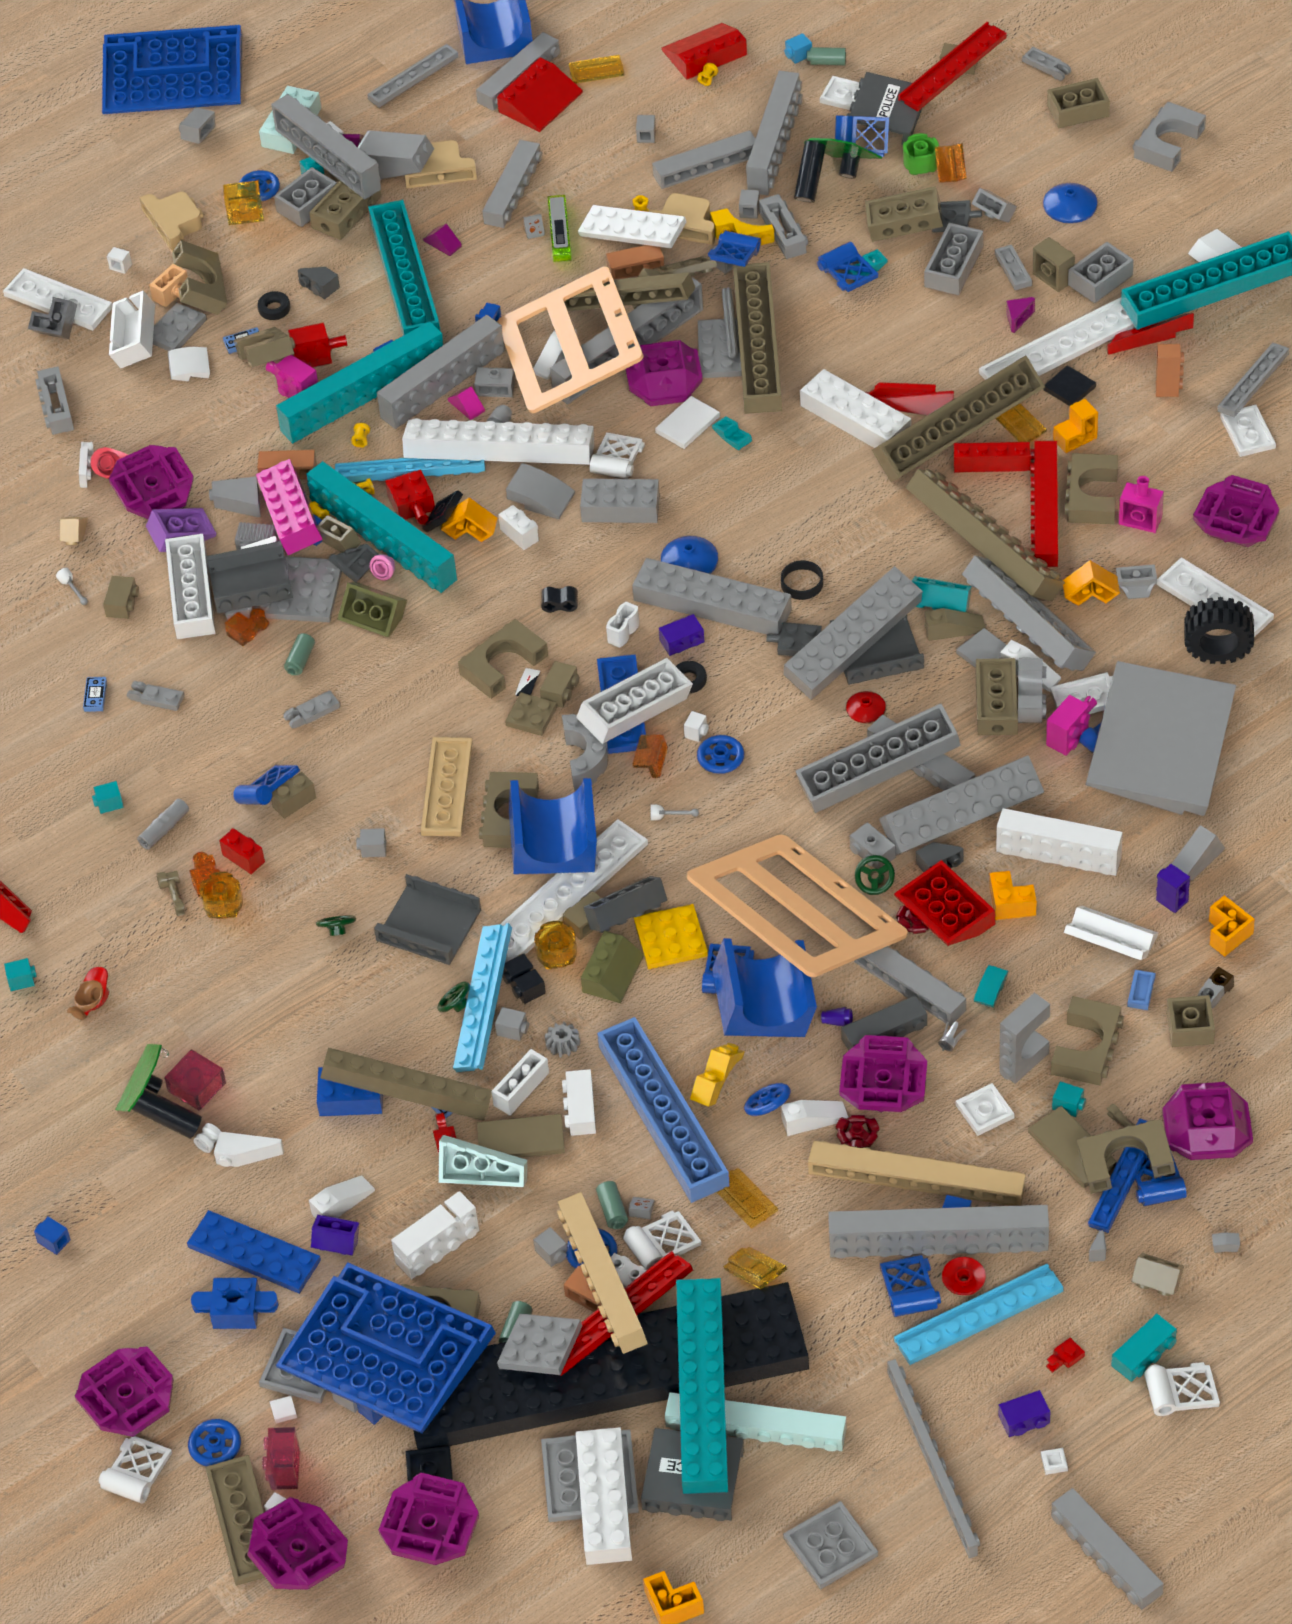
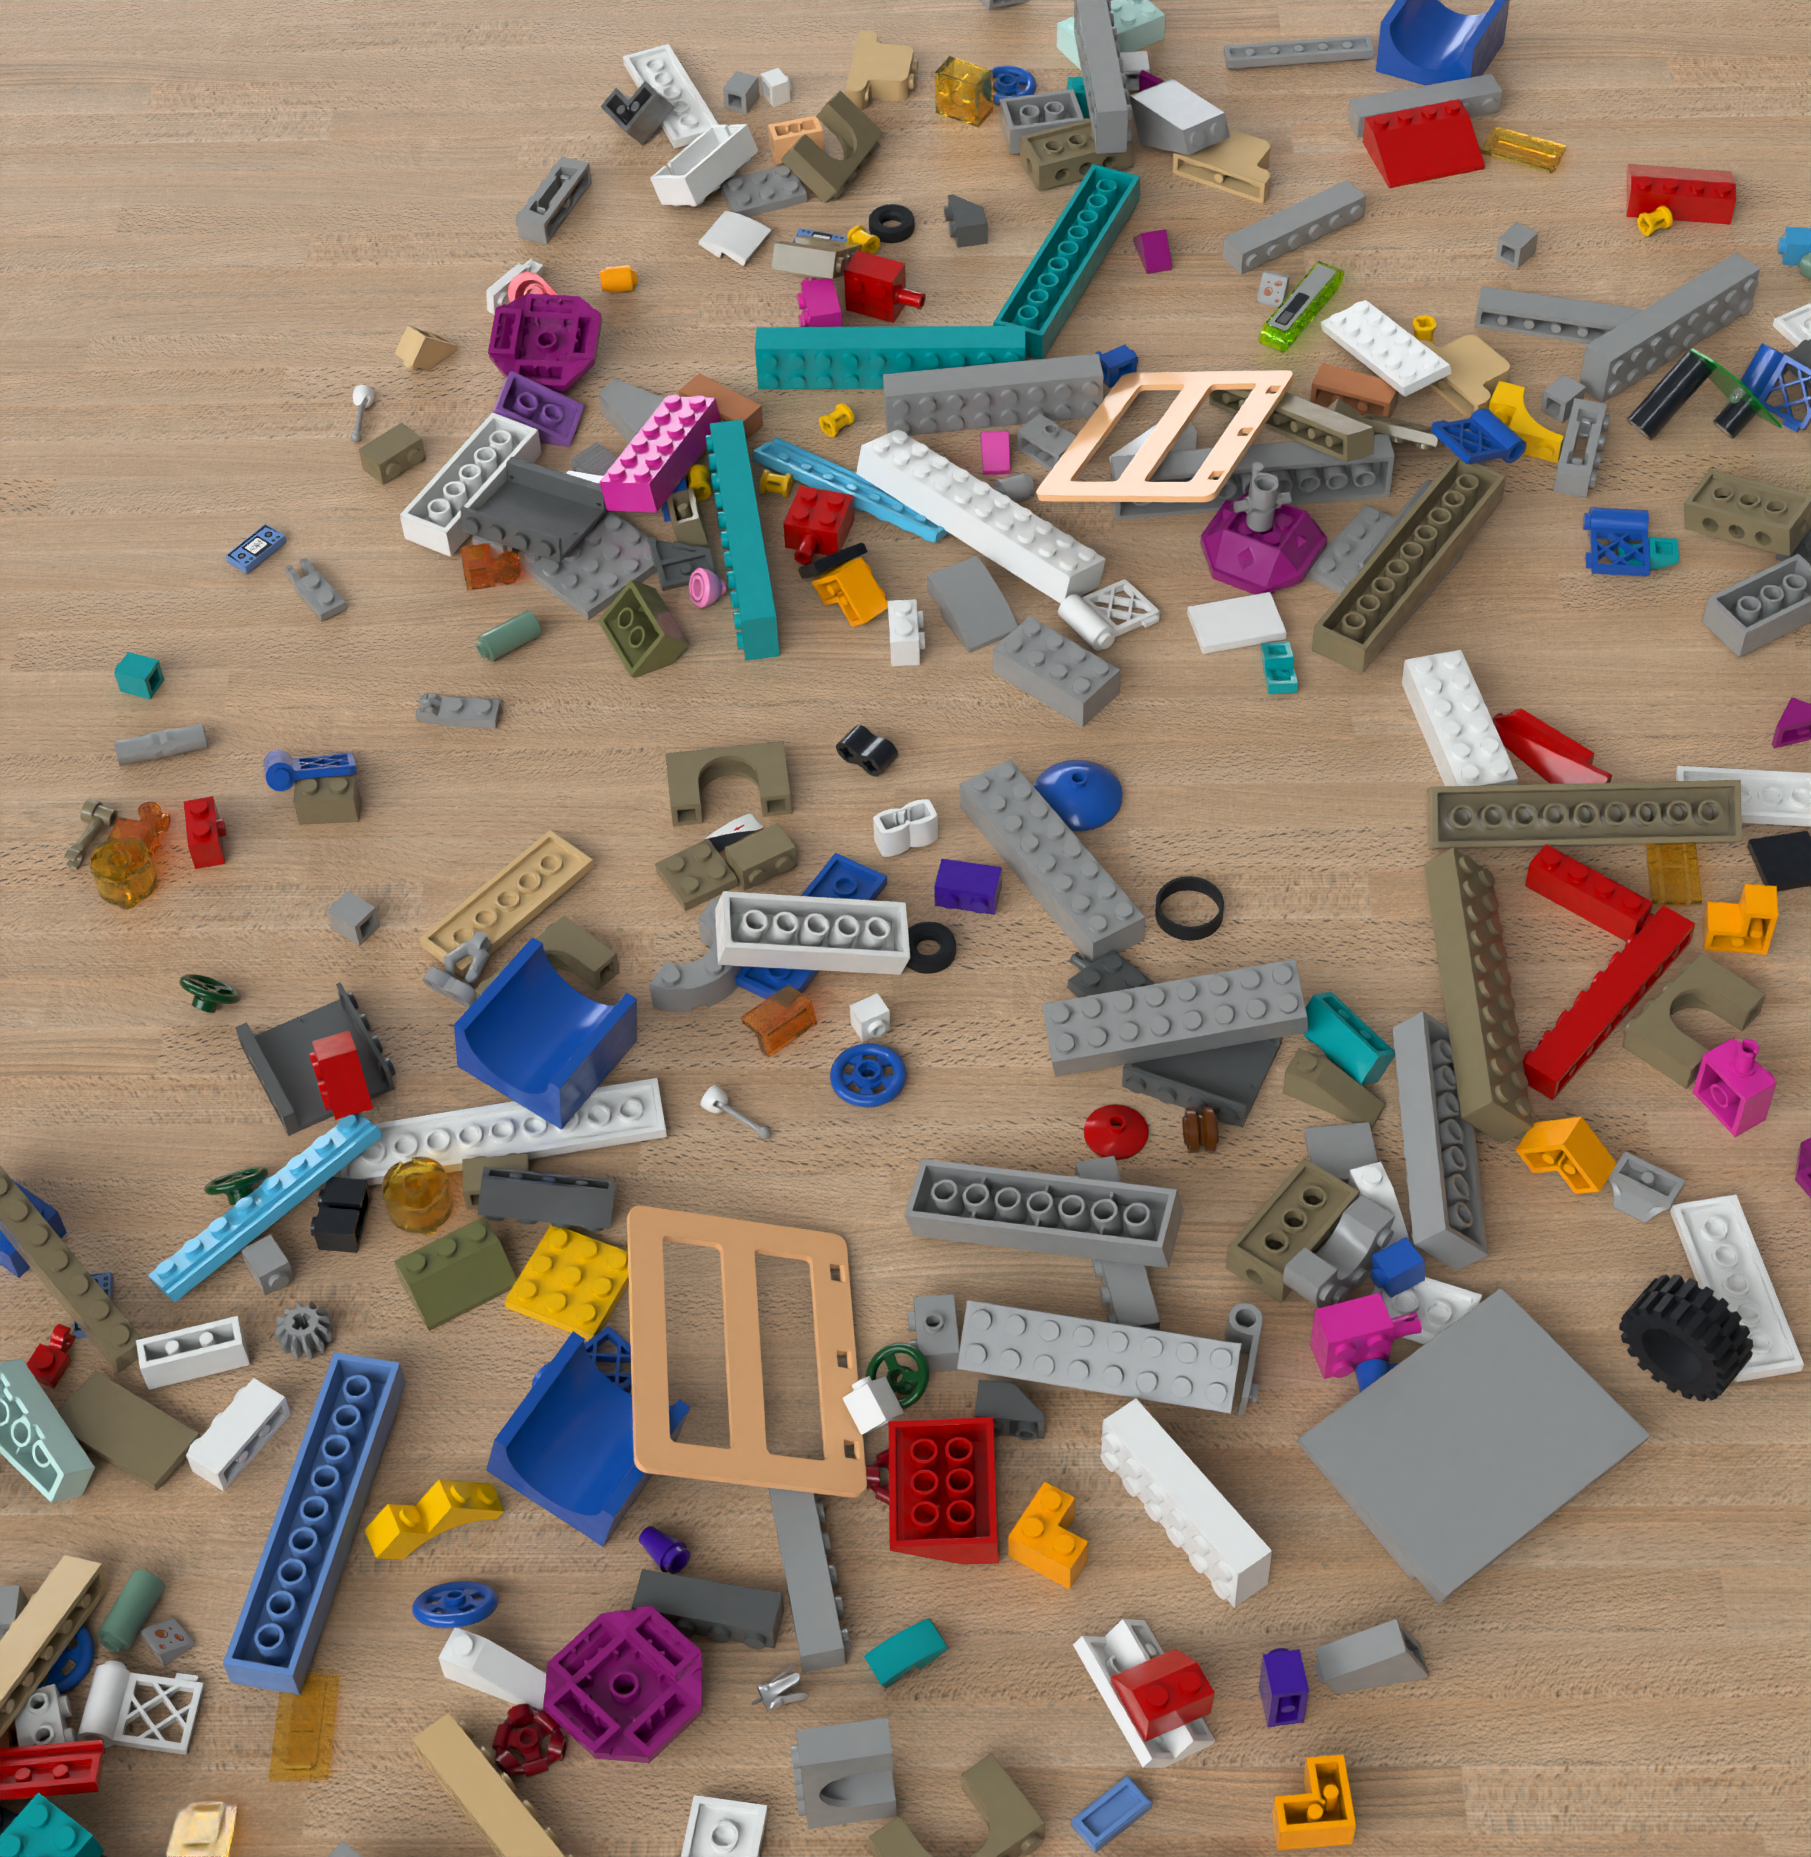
camera: 35 degrees right, 0 degrees up
(101, 274) = (741, 92): none -> light grey brick
(146, 425) = (618, 279): none -> light orange brick
(266, 323) = (869, 243): none -> yellow bush
(458, 844) = (447, 984): none -> light grey piece
(462, 911) = (341, 1074): none -> red brick
(656, 344) = (1262, 499): none -> light grey pin
(876, 892) = (872, 1404): none -> white brick
(909, 679) = (1200, 1129): none -> reddish brown wheel
(1016, 749) = (1245, 1326): none -> light grey door
(1060, 682) = (1397, 1268): none -> blue brick
(1125, 921) = (1164, 1693): none -> red slope

